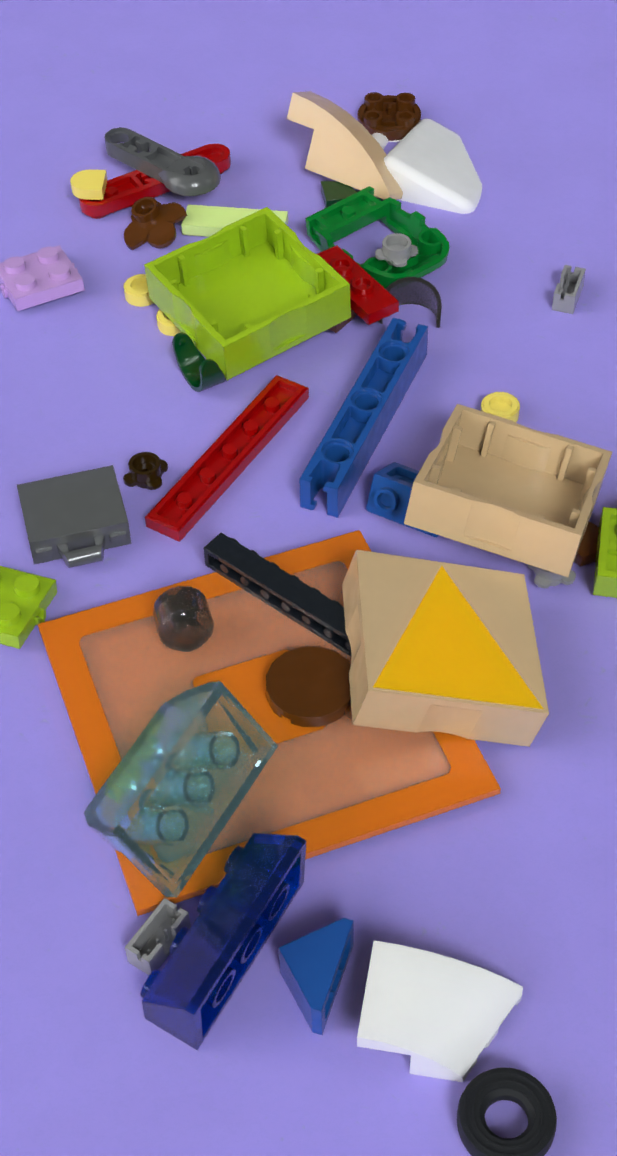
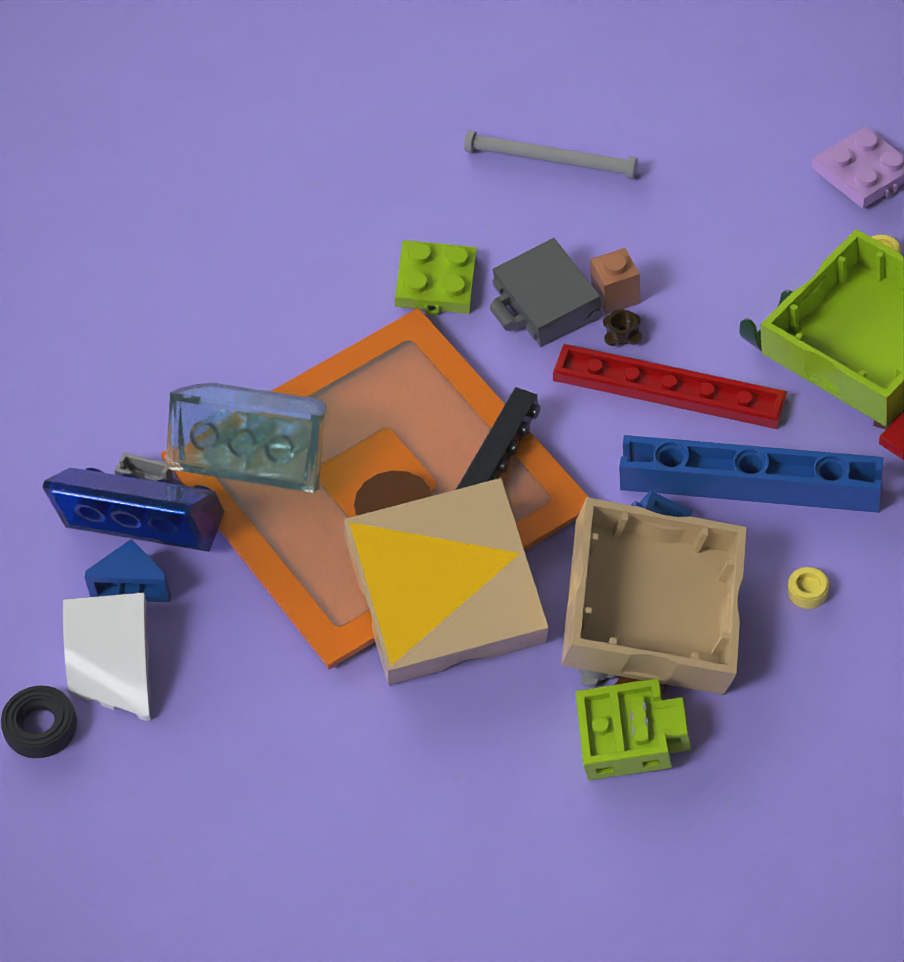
camera: 80 degrees right, 5 degrees up
(88, 448) = (615, 280): none -> nougat brick
(183, 618) = (431, 395): clear smoke head -> none

